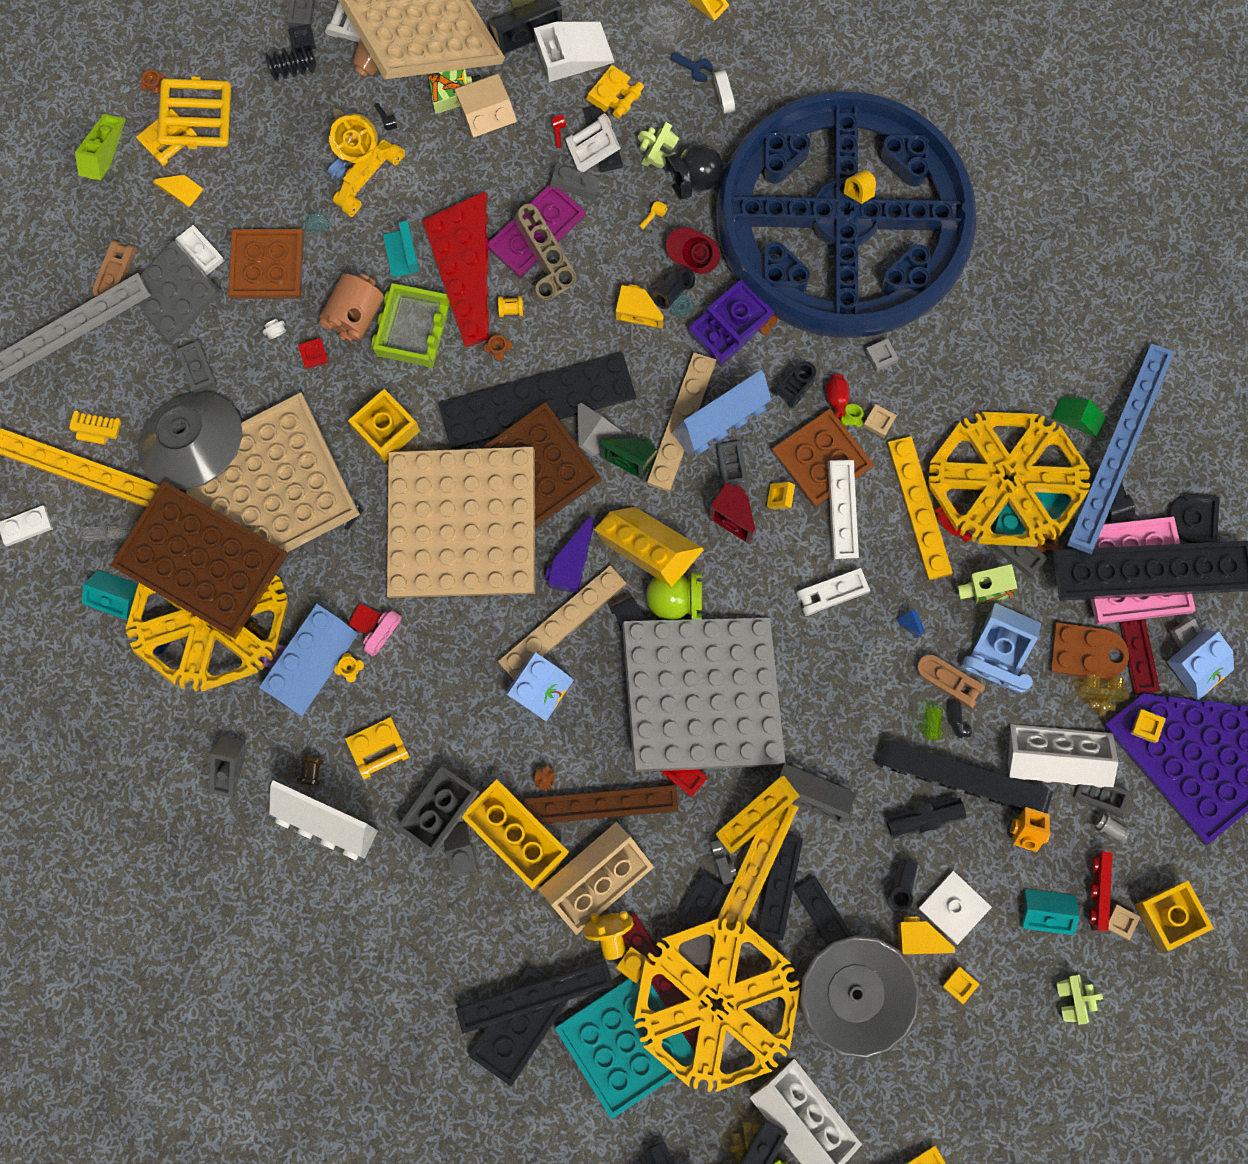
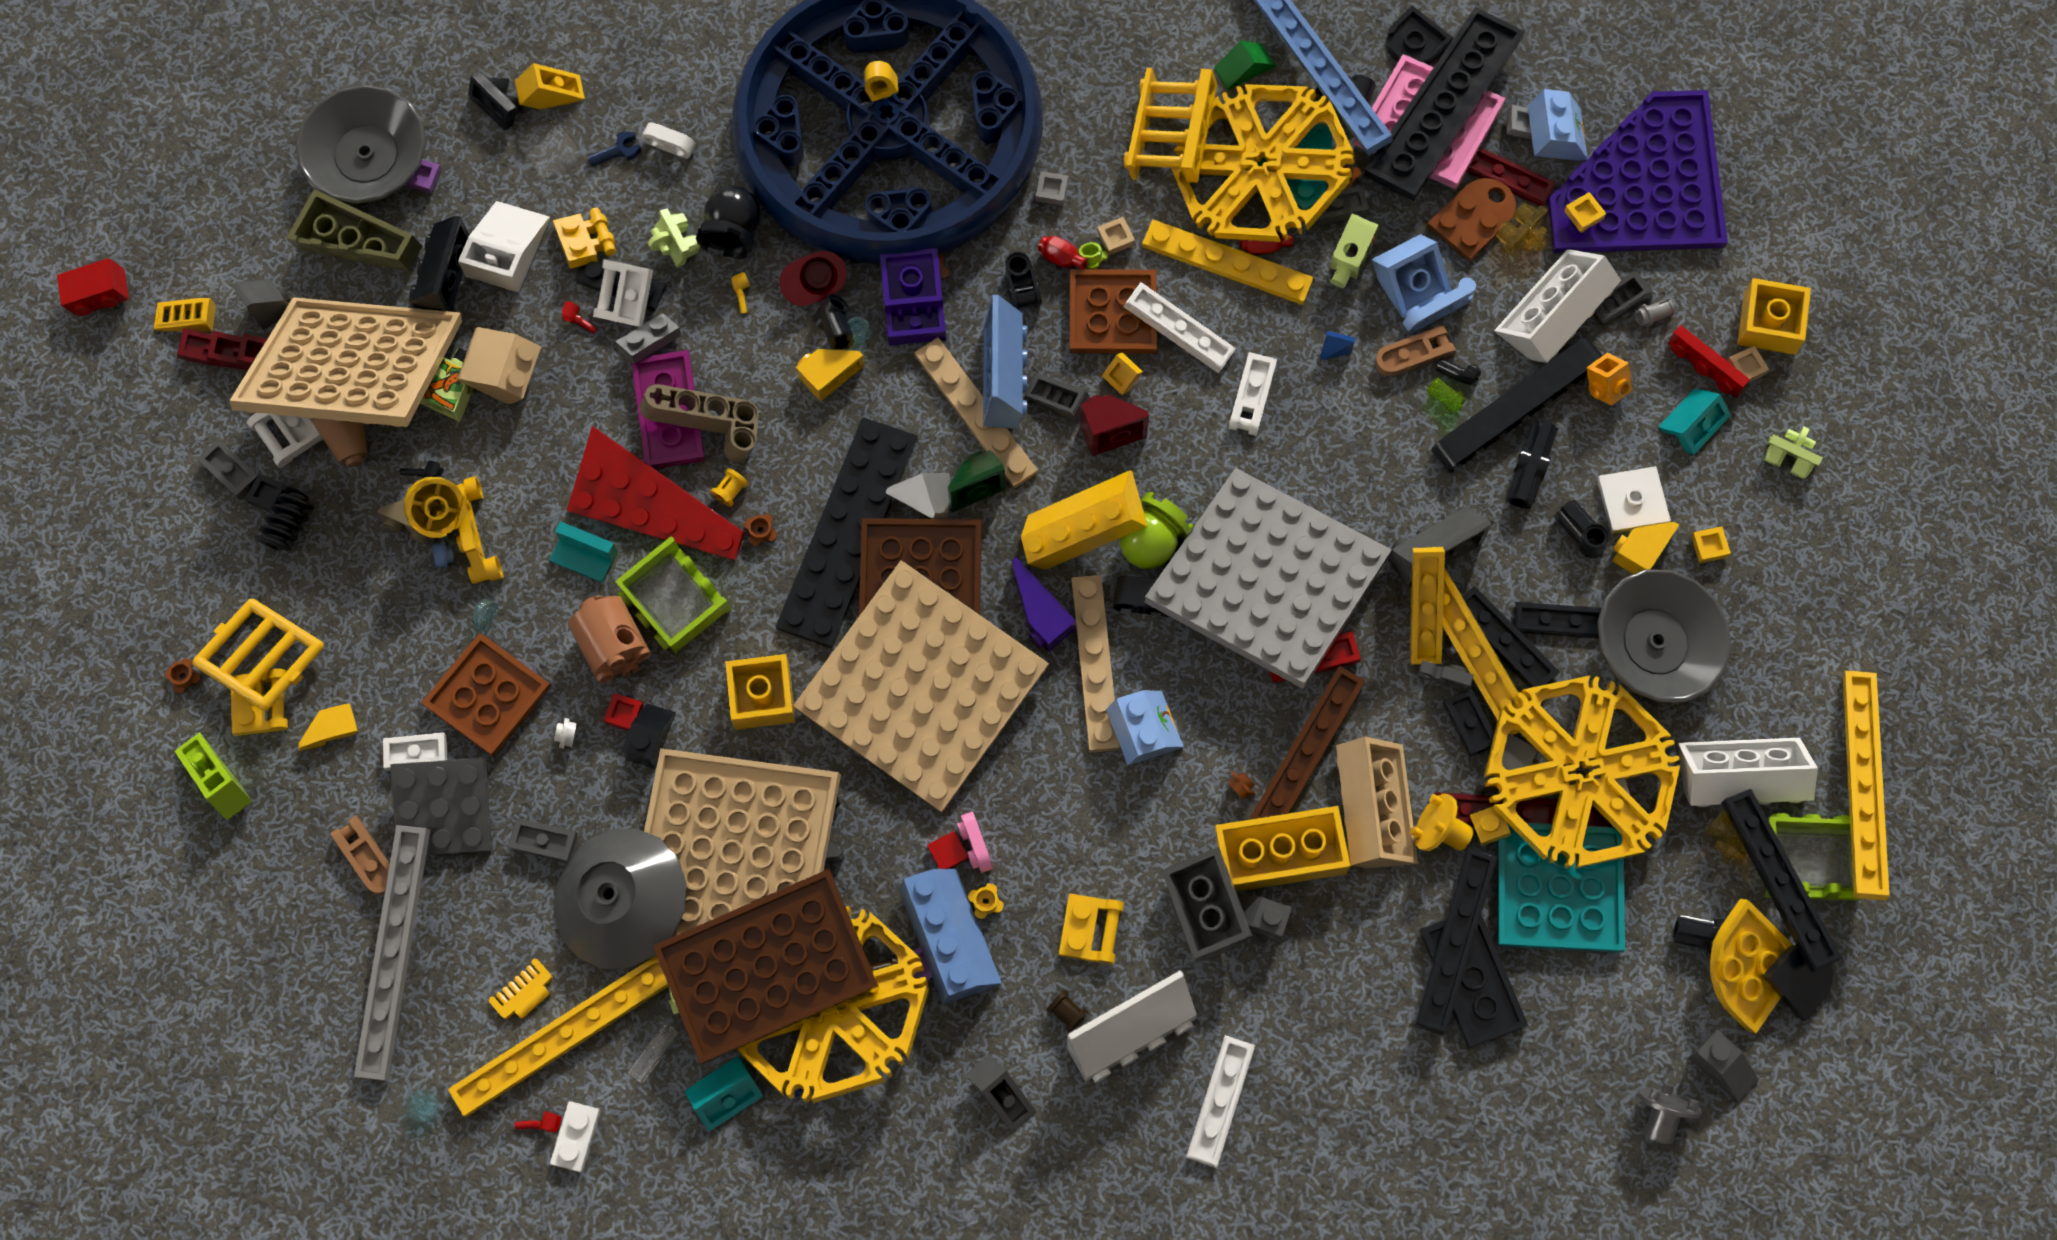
camera: 55 degrees left, 5 degrees down
(24, 503) = (549, 1123): none -> red hand
(309, 378) = (648, 735): none -> black slope
(319, 913) = (1220, 1101): none -> white tile
(990, 419) = (1193, 138): none -> yellow fence

